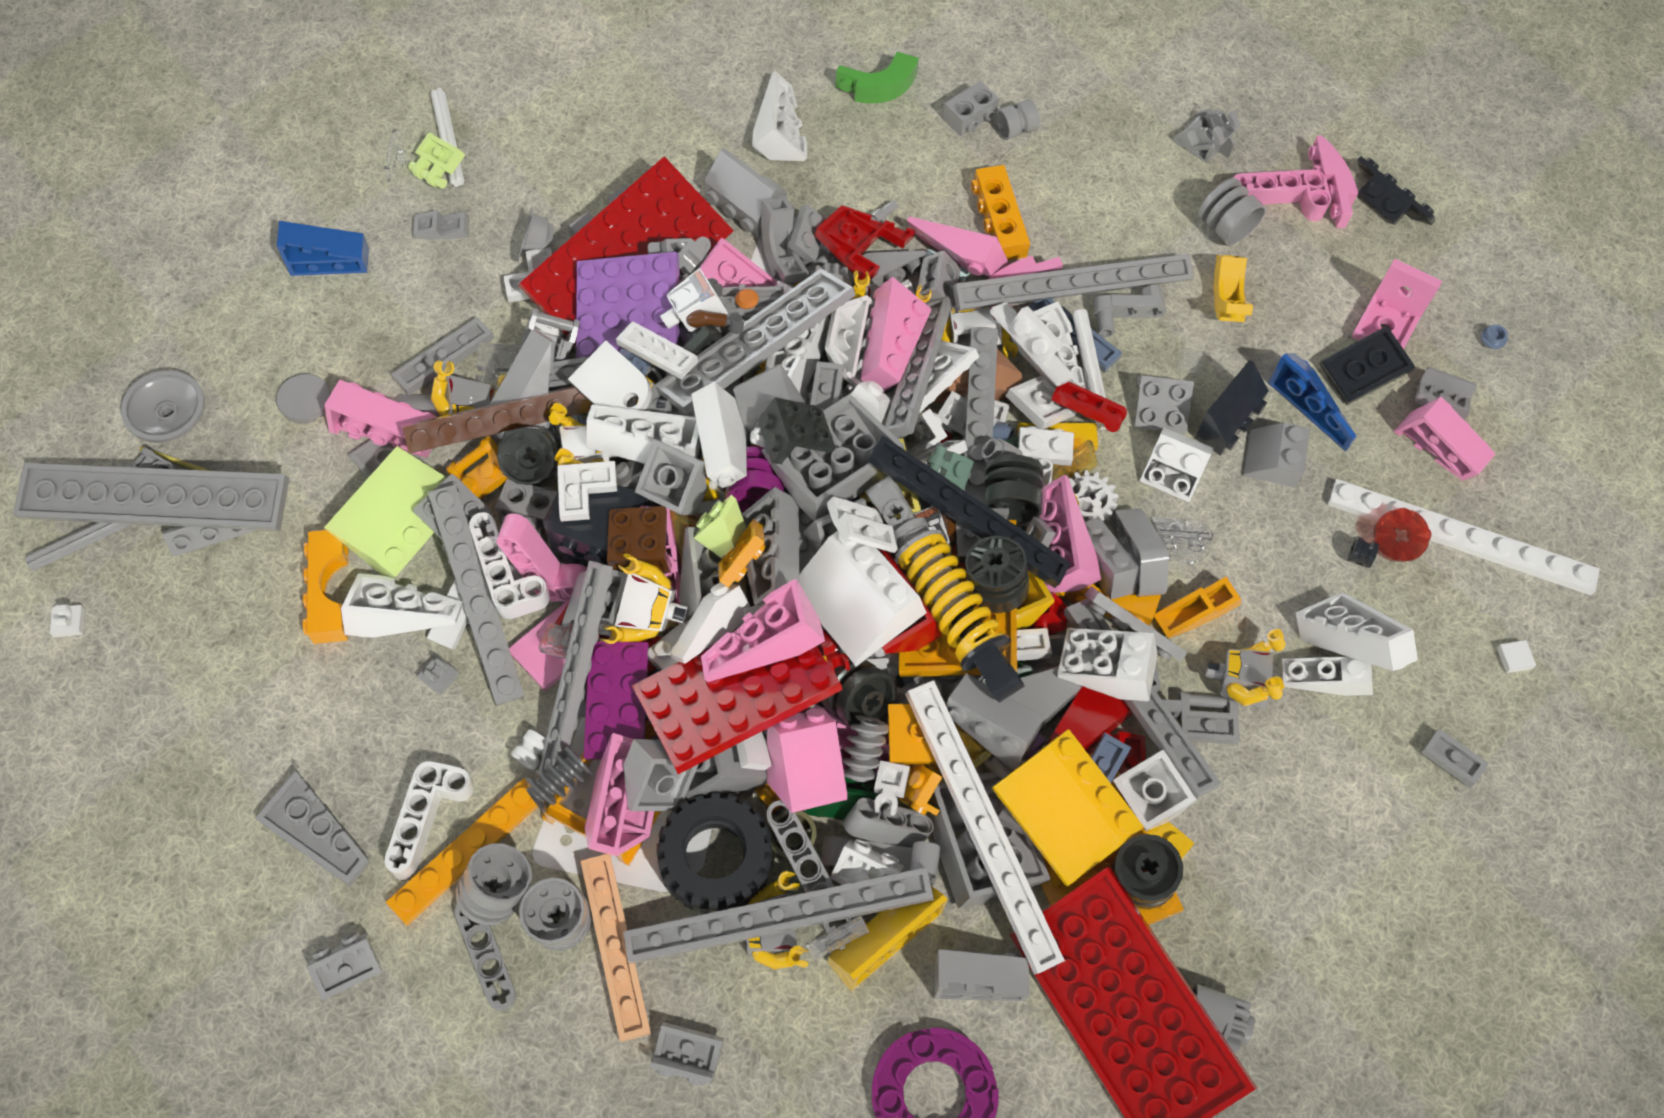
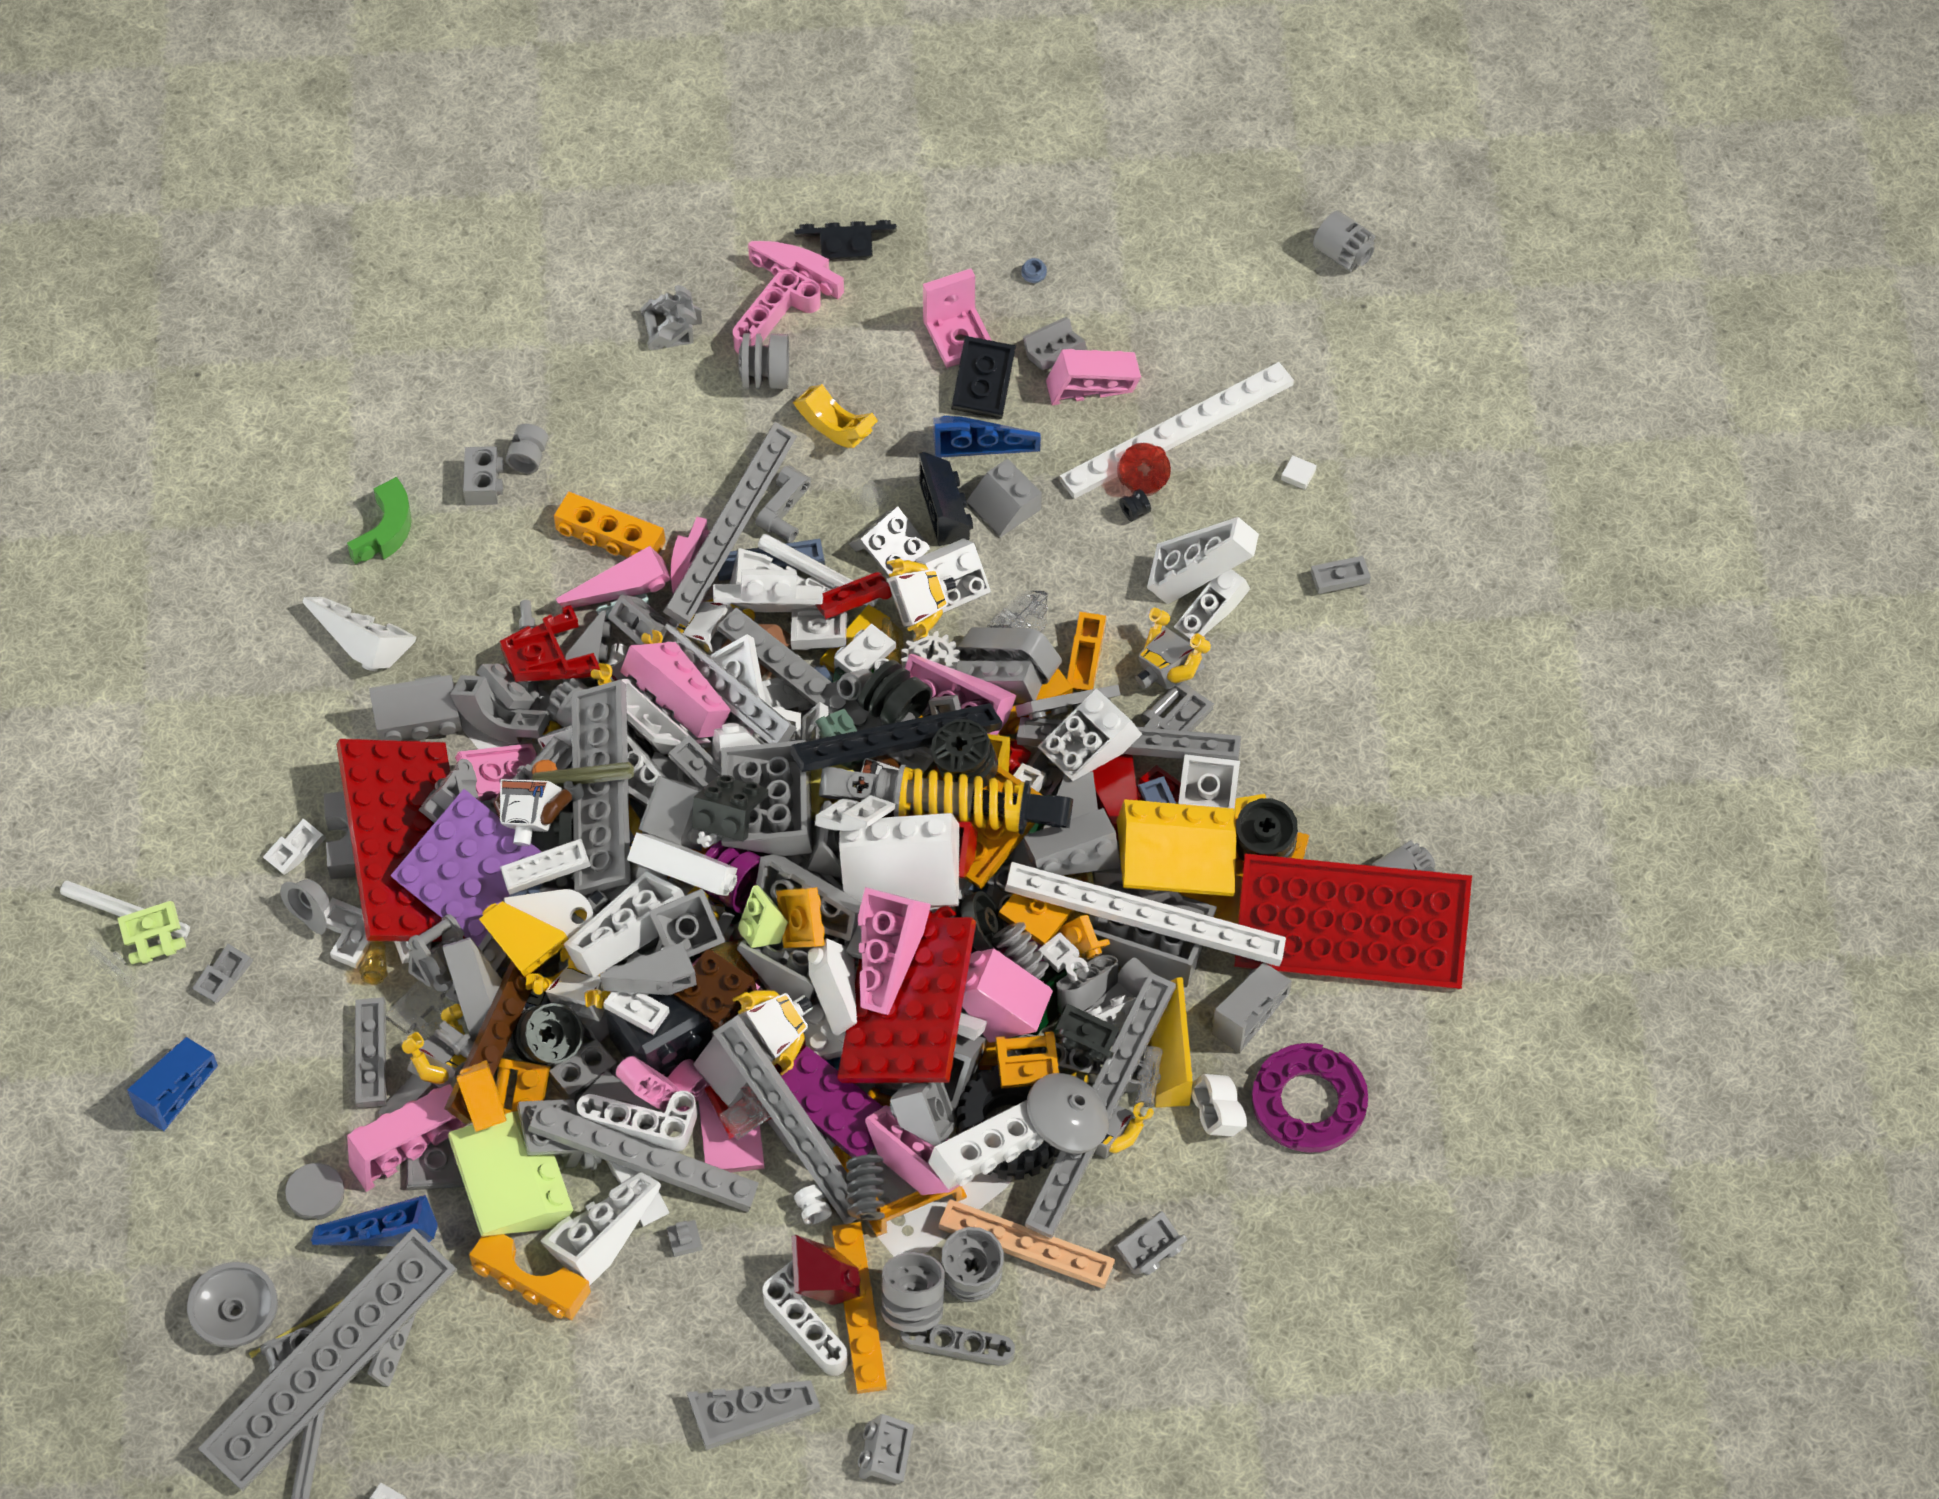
camera: 50 degrees left, 5 degrees down
(301, 463) = (379, 1226): none -> blue wedge
(428, 442) = (481, 1096): none -> light orange hinge
(466, 797) = (823, 1272): none -> dark red slope
(477, 393) = (460, 1043): none -> light grey pin
(516, 310) = (374, 965): none -> clear yellow cone
(570, 200) = (291, 851): none -> white slope
(578, 373) = (522, 936): none -> yellow slope
(610, 486) = (657, 973): none -> light grey slope
(700, 857) = (974, 1144): none -> white brick
(718, 890) = (1067, 1113): none -> light grey dish
(753, 321) = (588, 774): none -> olive axle
(757, 831) = (1025, 1069): none -> light orange plate
(824, 856) = (1086, 1032): none -> pearl dark grey bracket
(862, 1017) = (1218, 1105): none -> white brick
(1129, 448) = (919, 595): none -> torso

